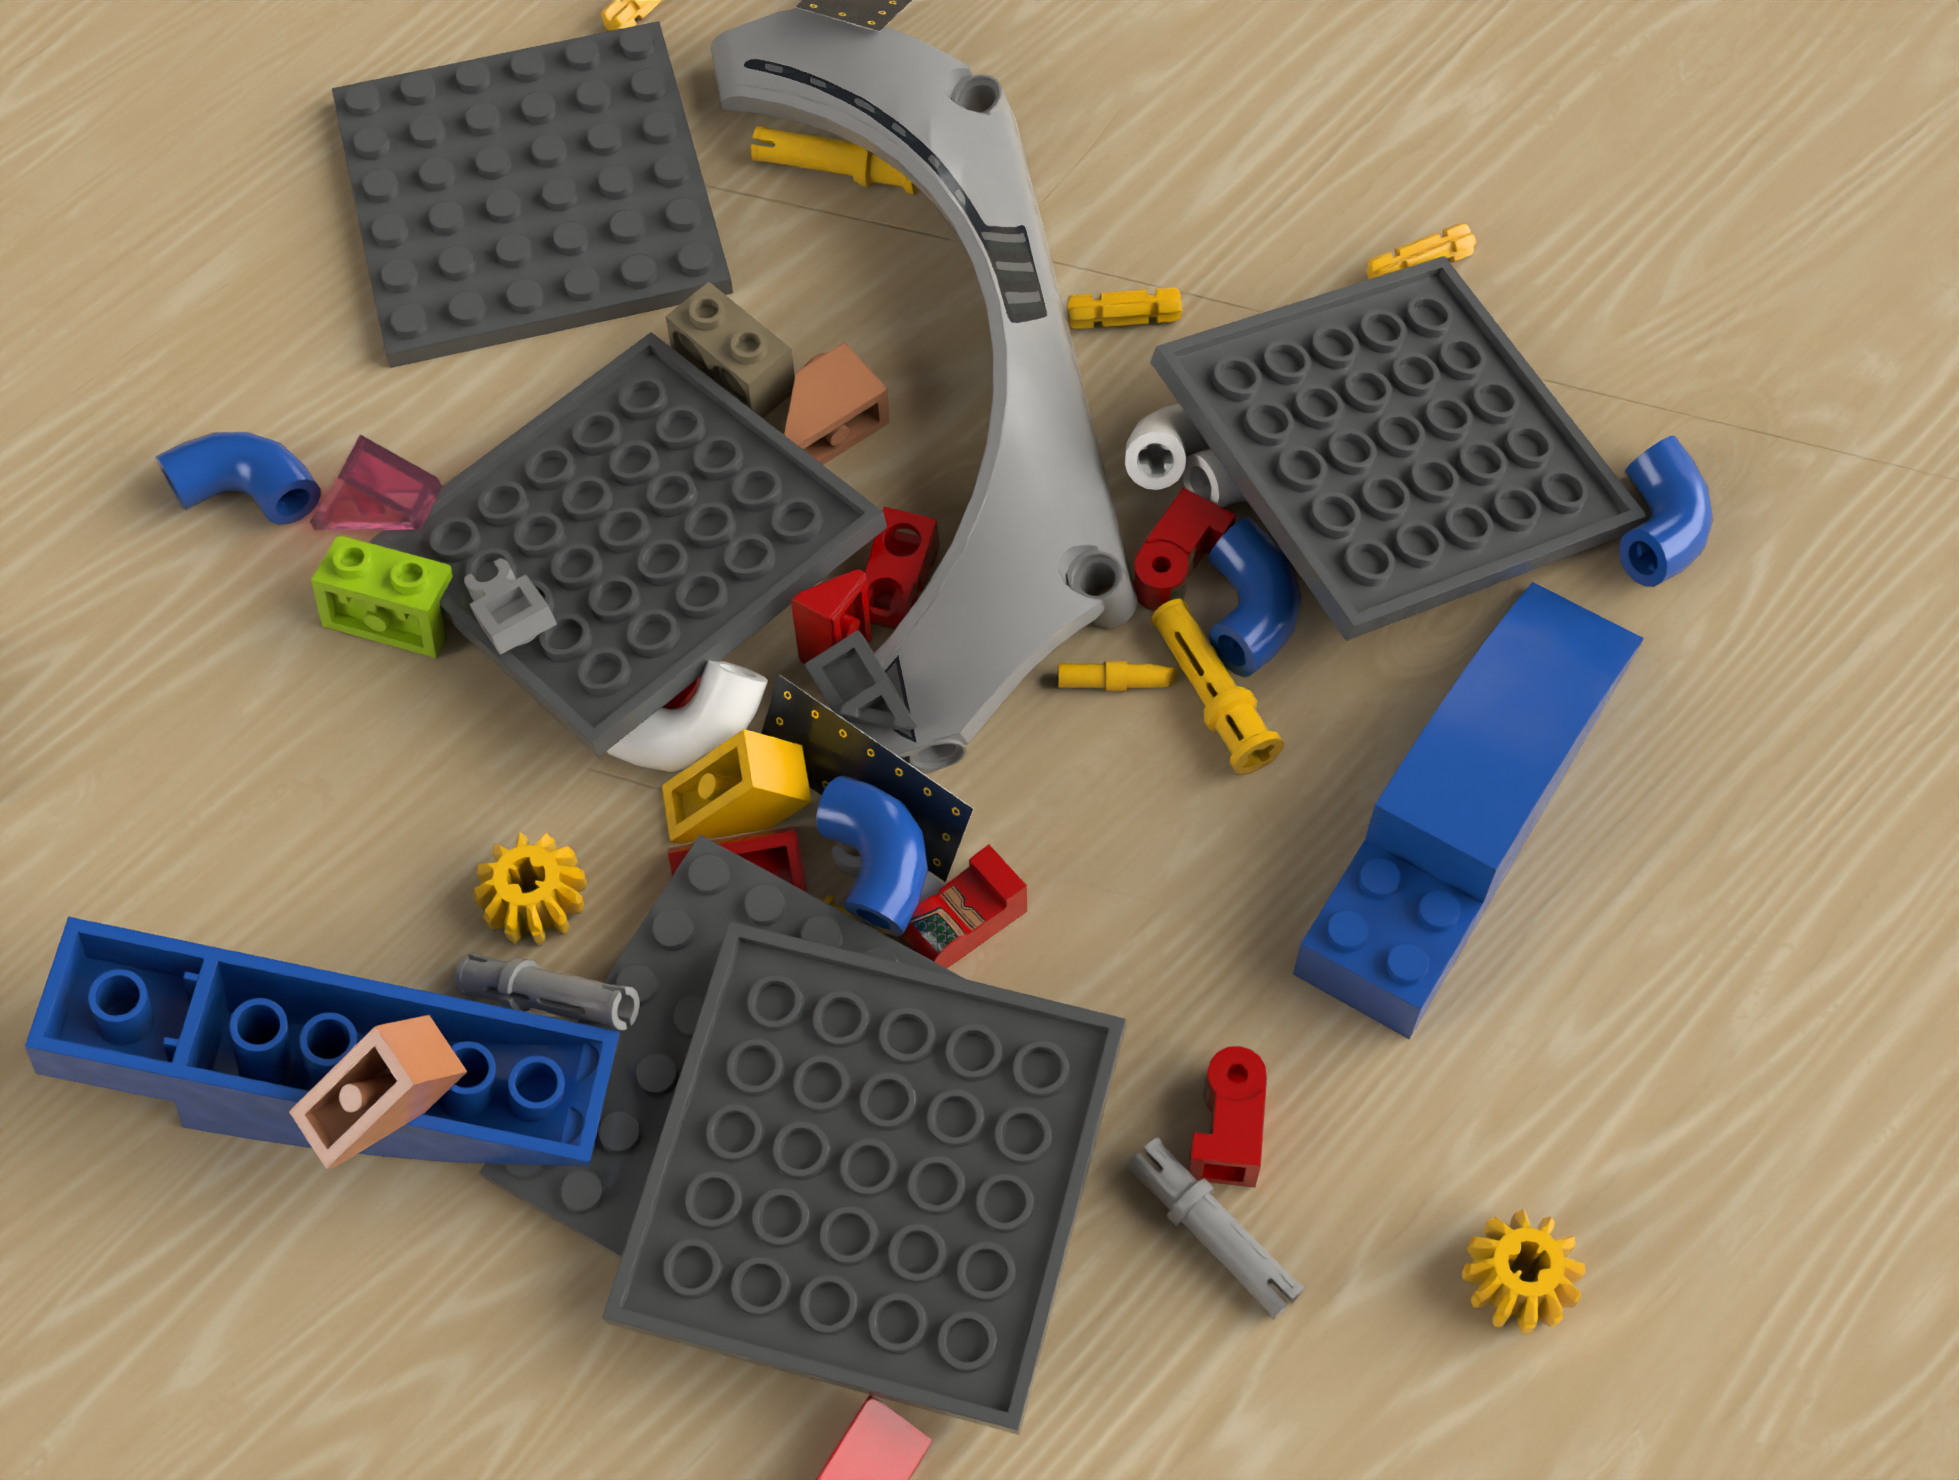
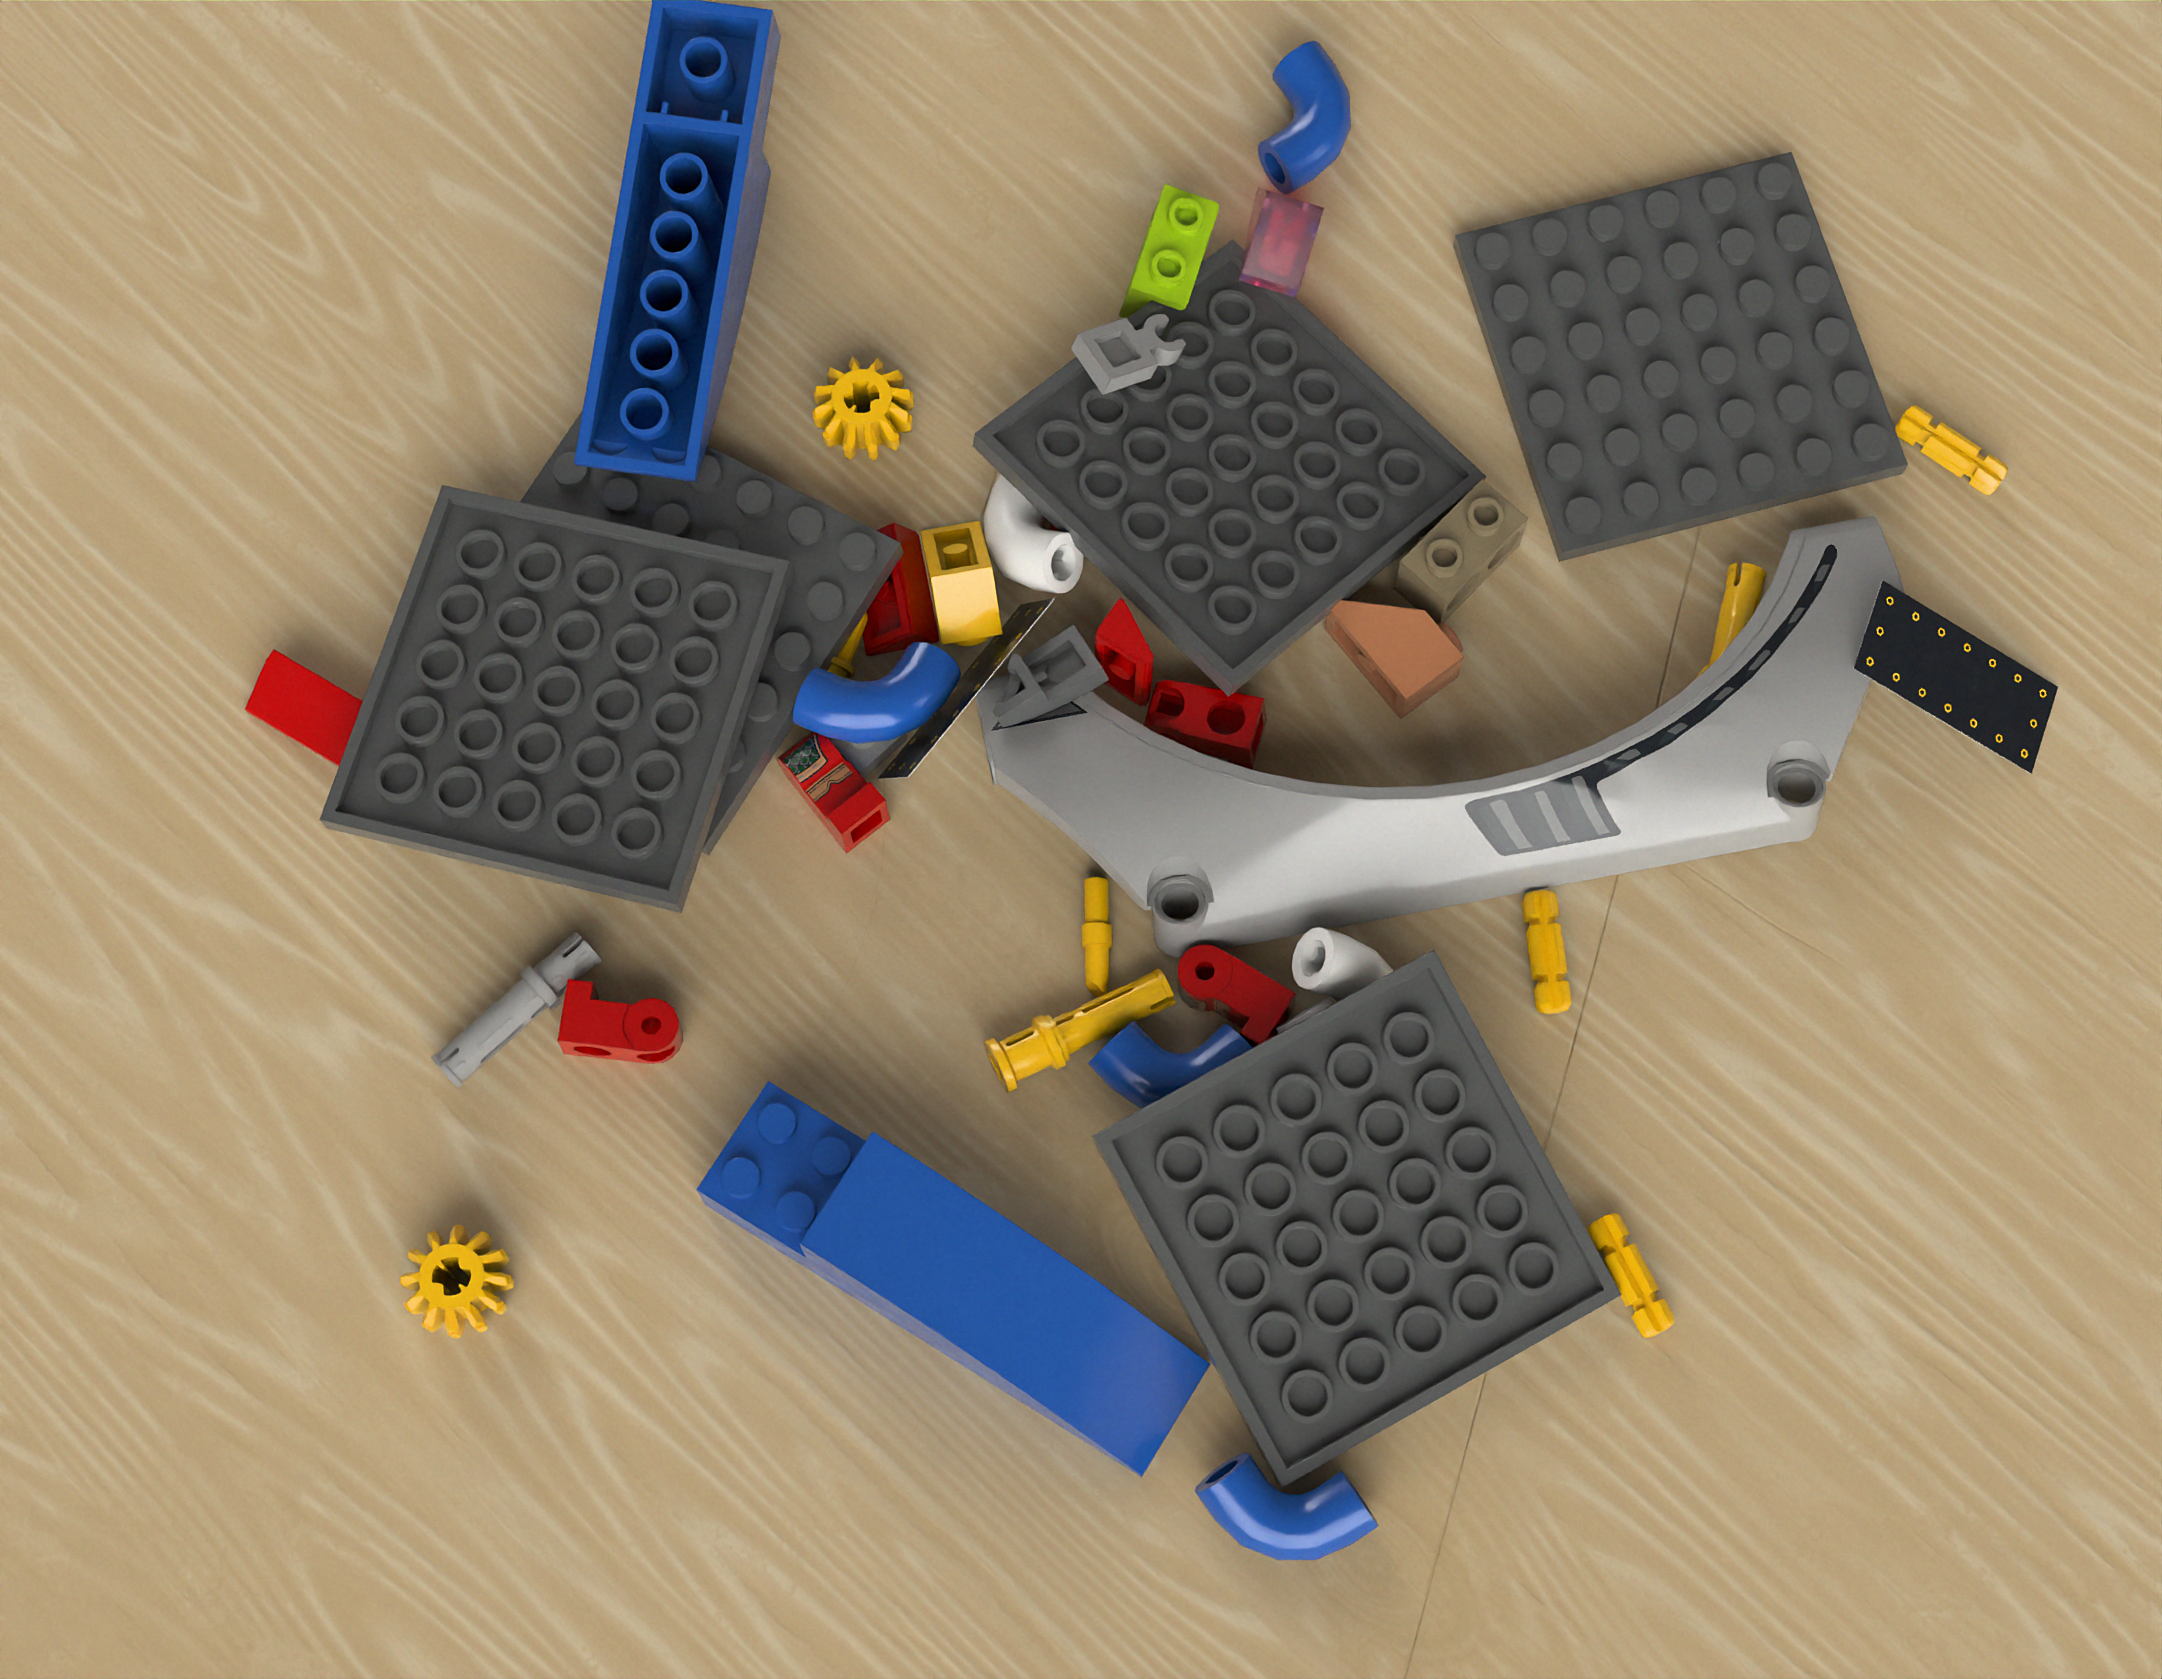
camera: 90 degrees right, 10 degrees up
(377, 1088) = (617, 275): nougat slope -> none
(526, 986) = (760, 408): light grey pin -> none

